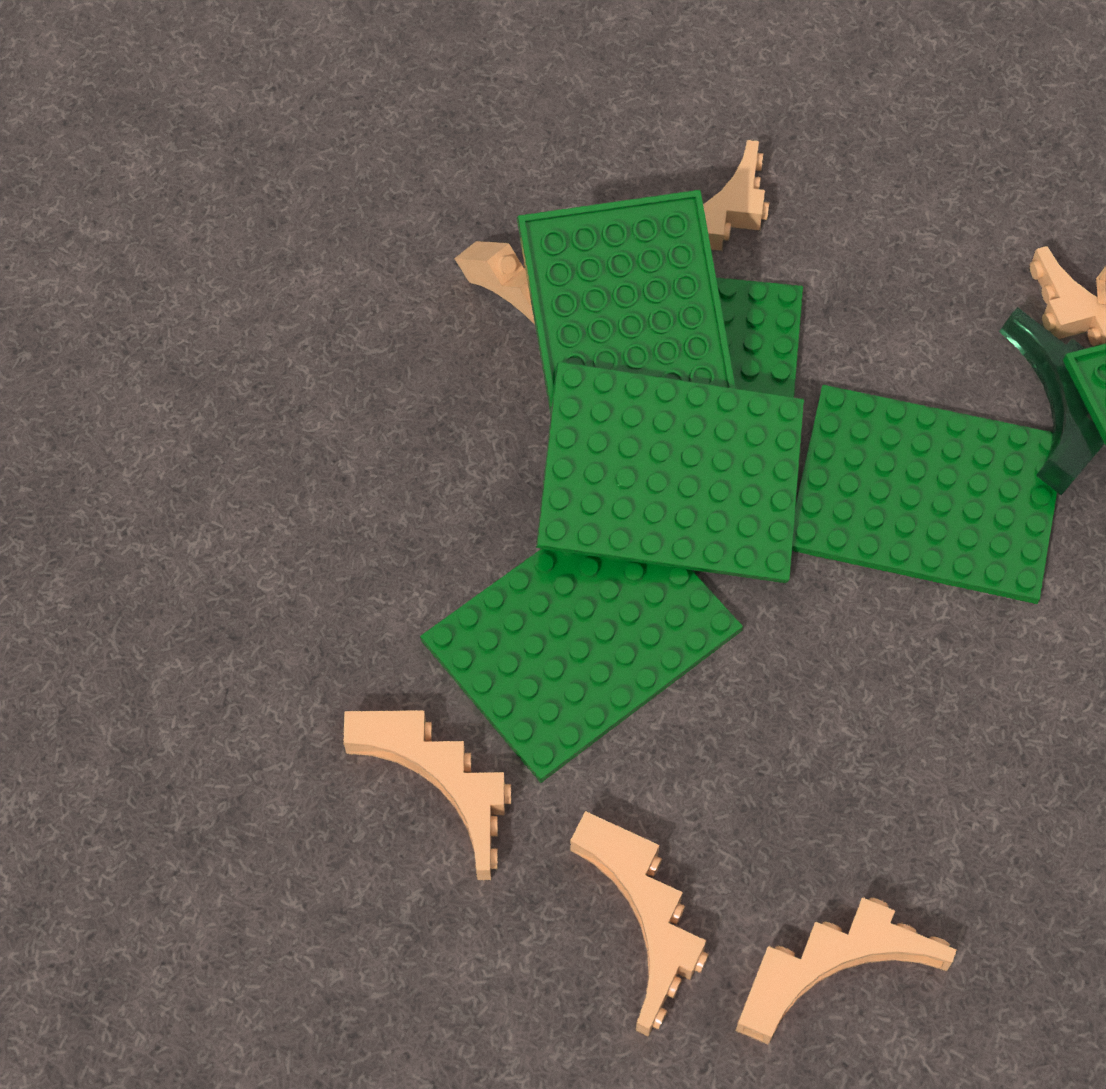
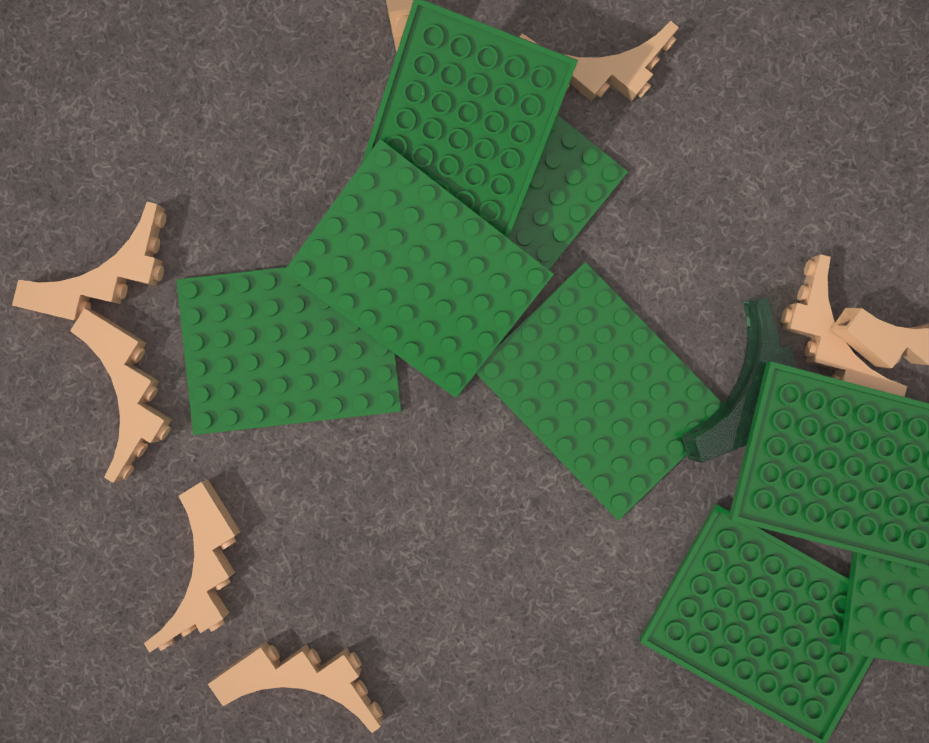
camera: 25 degrees right, 25 degrees up
(319, 717) = (107, 281): none -> light nougat arch

